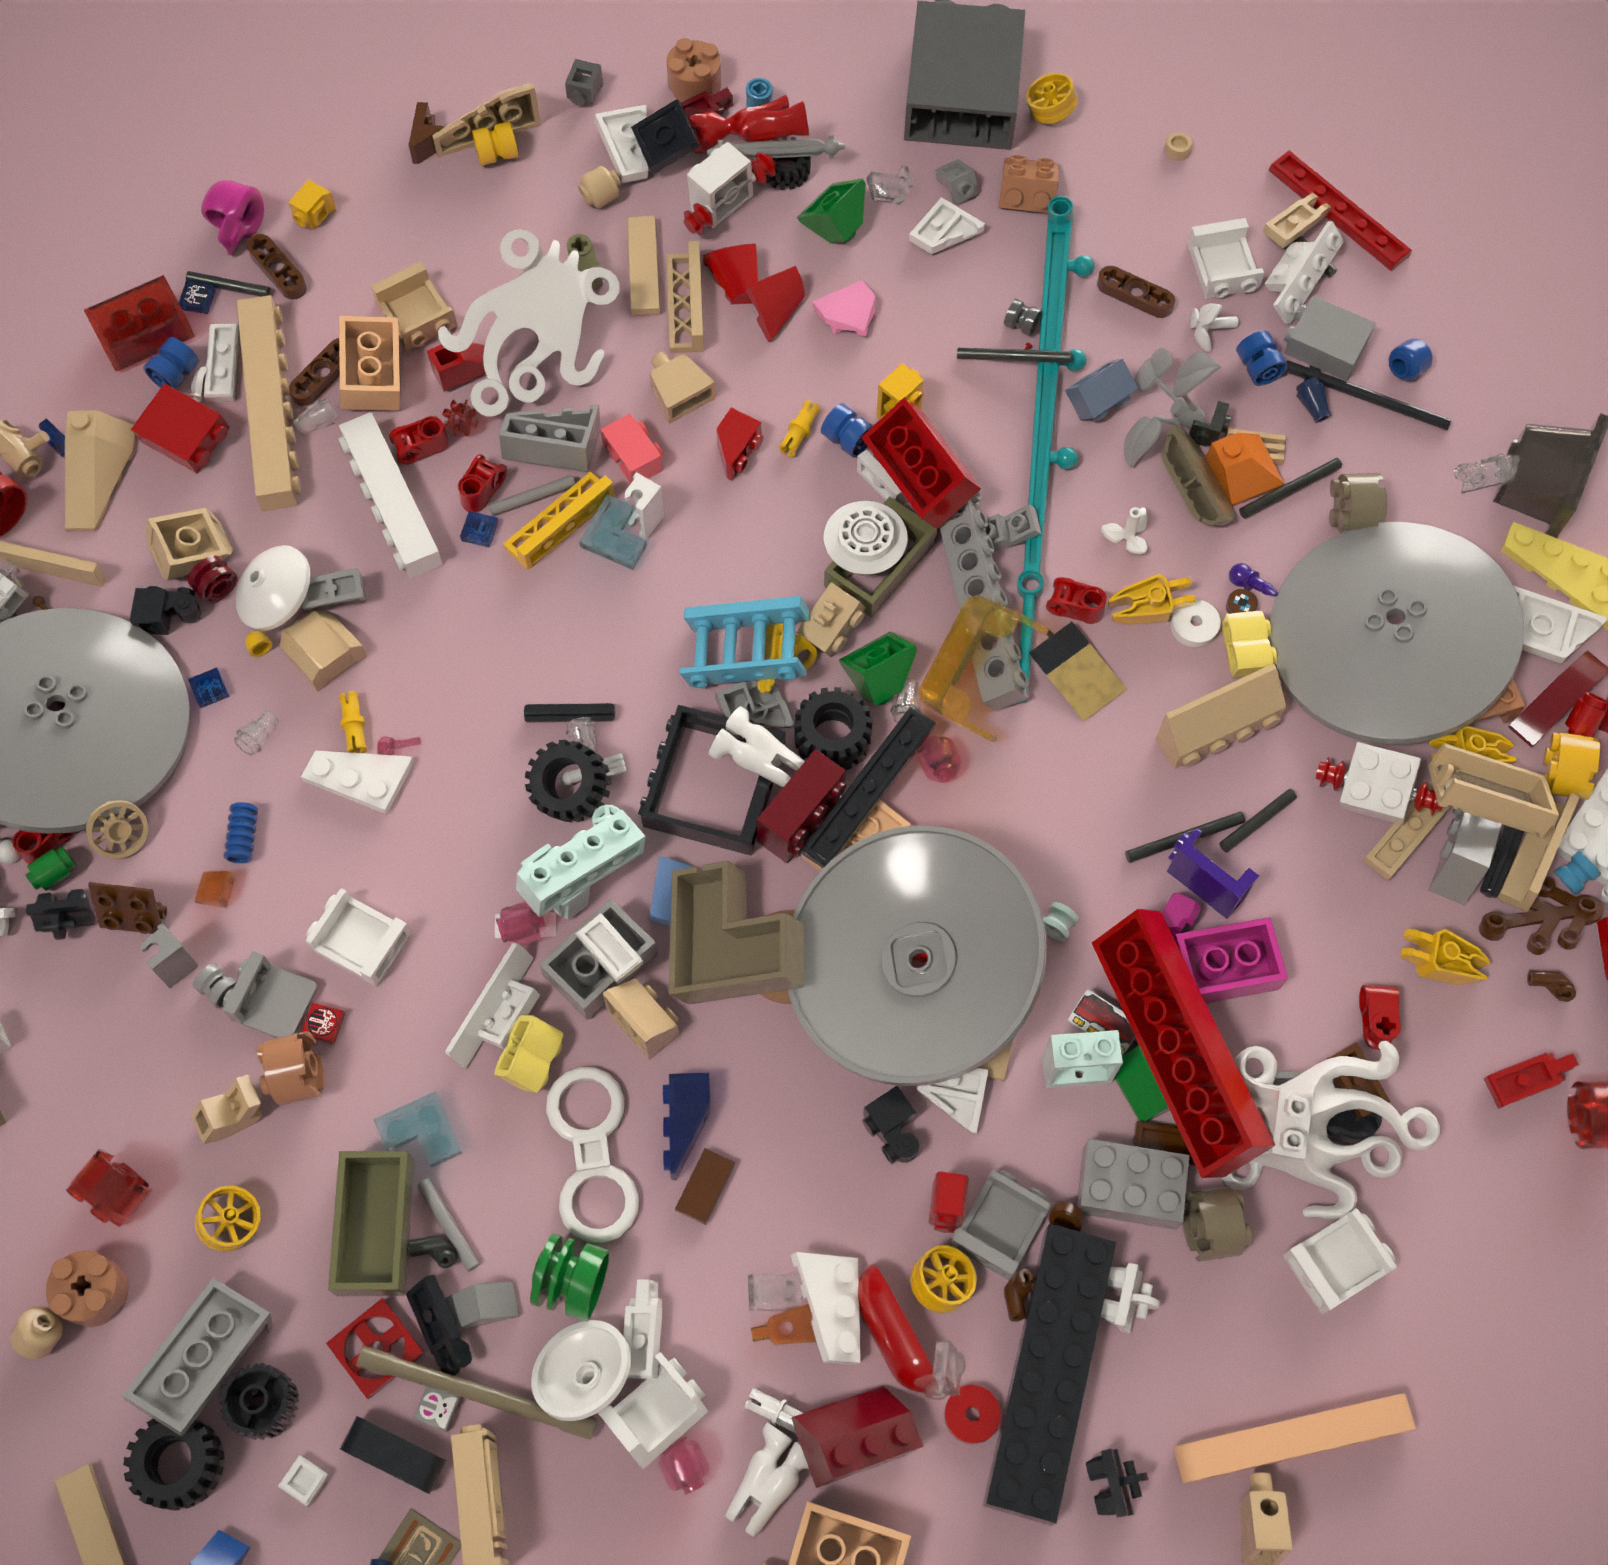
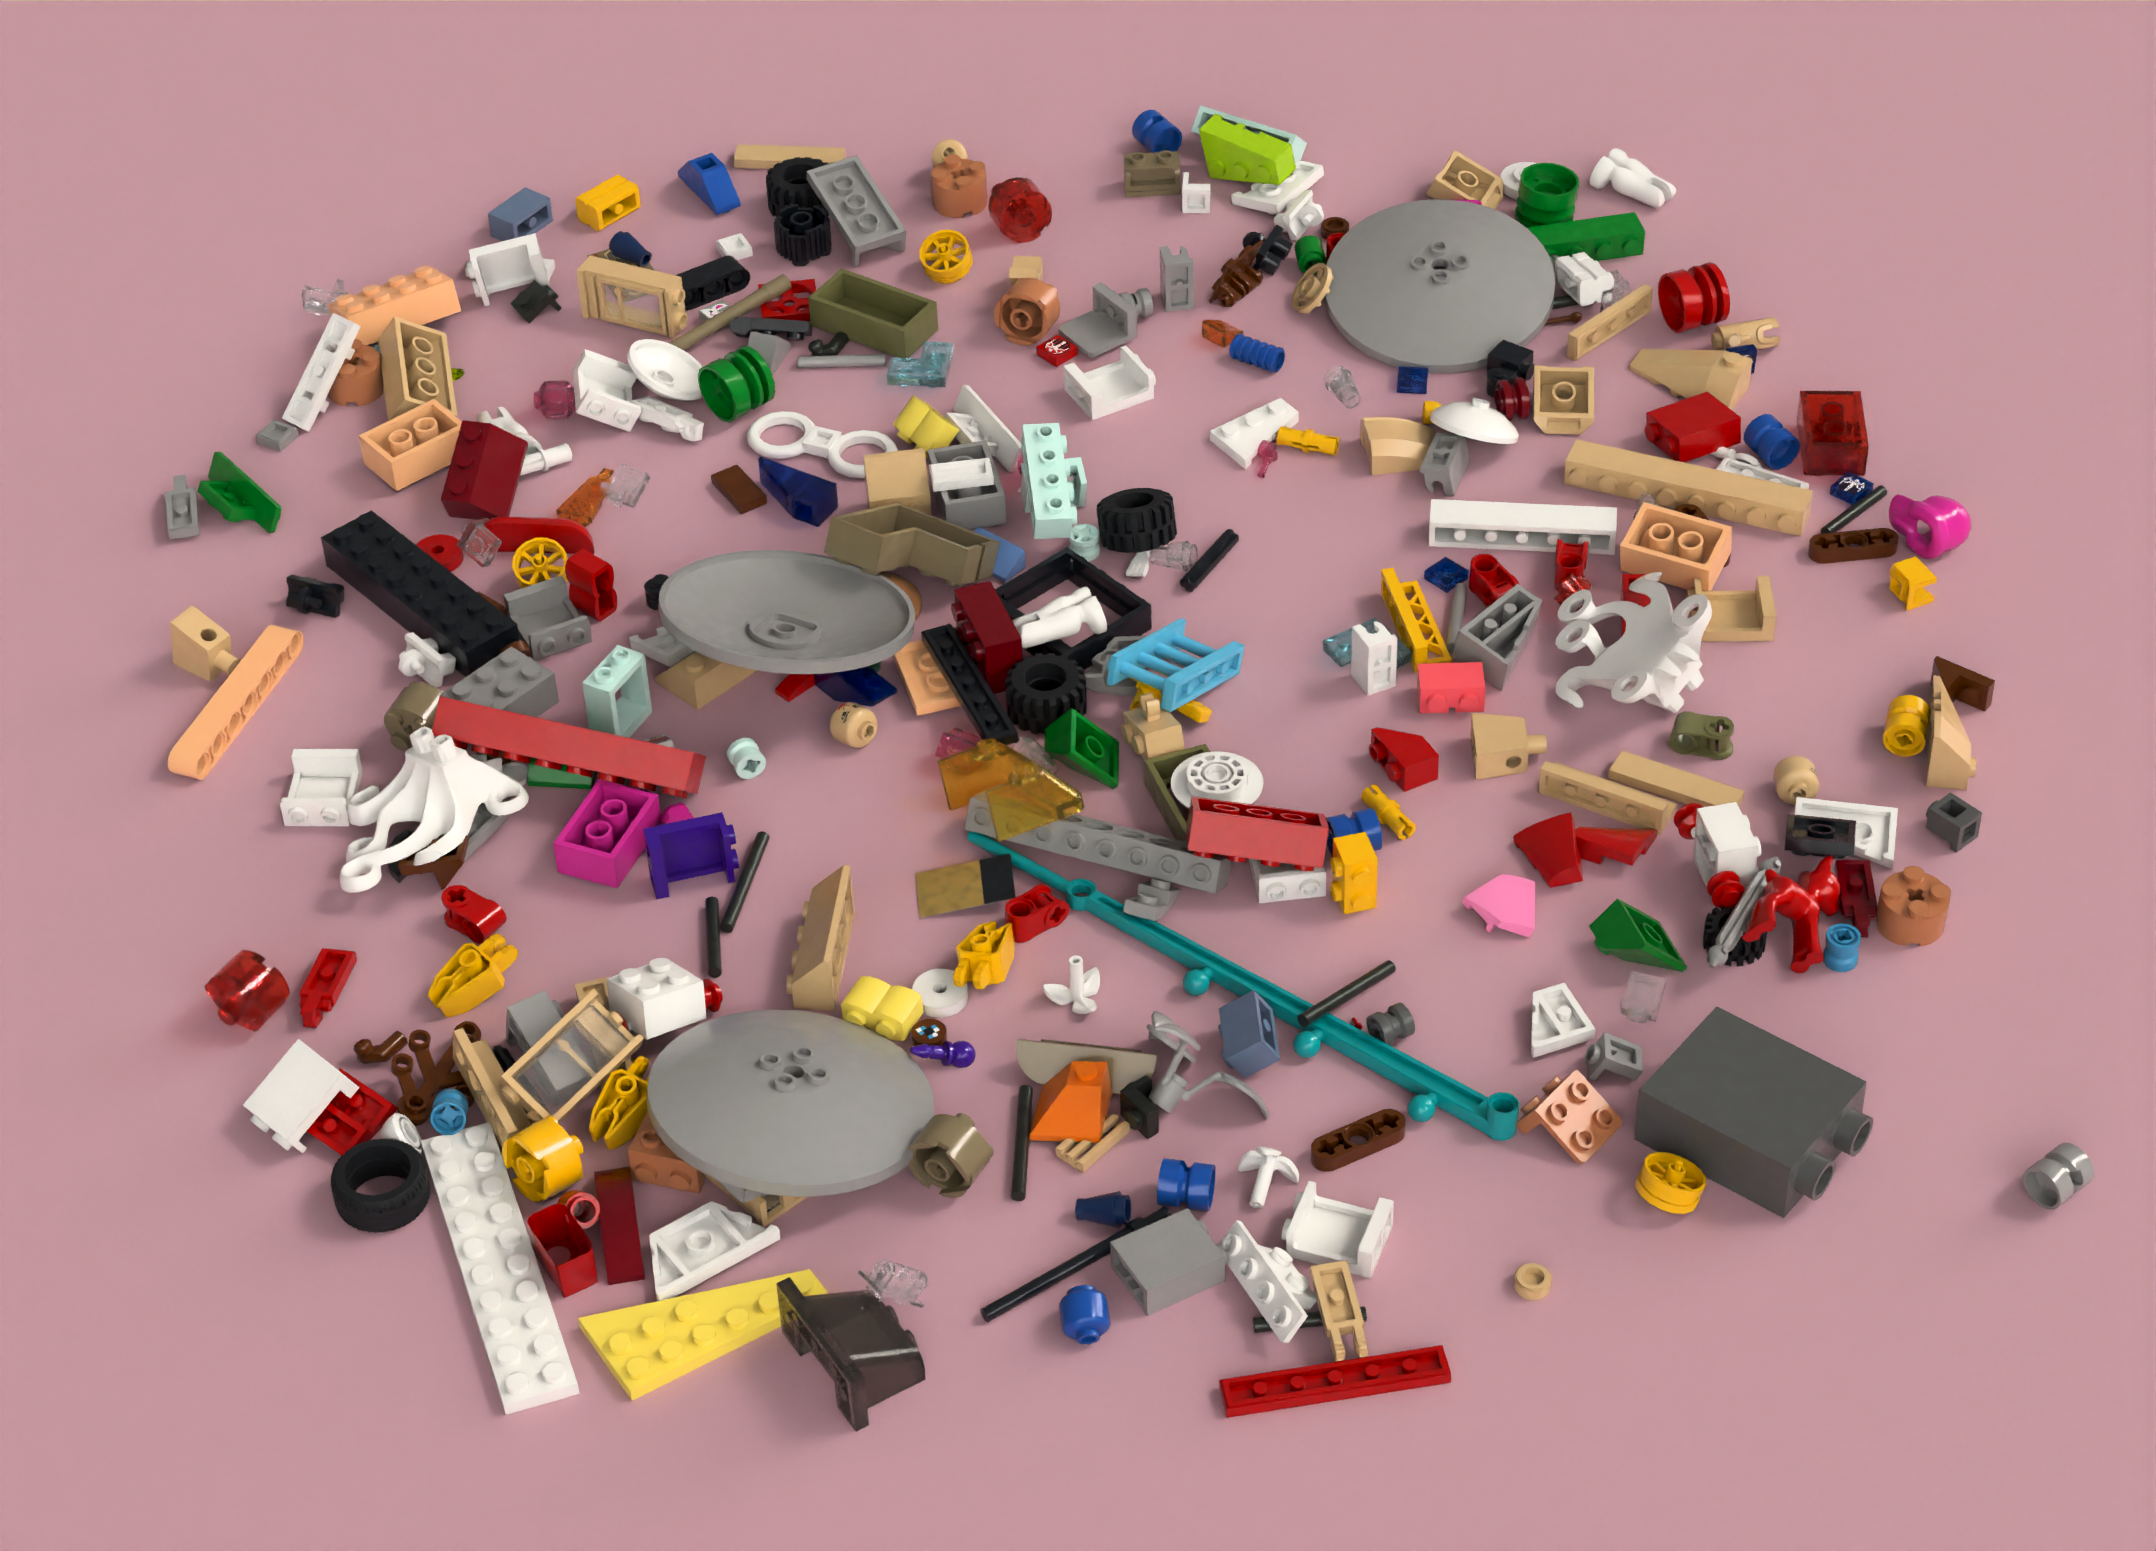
camera: 125 degrees right, 25 degrees down
(832, 1294) = (591, 504): white wing -> none

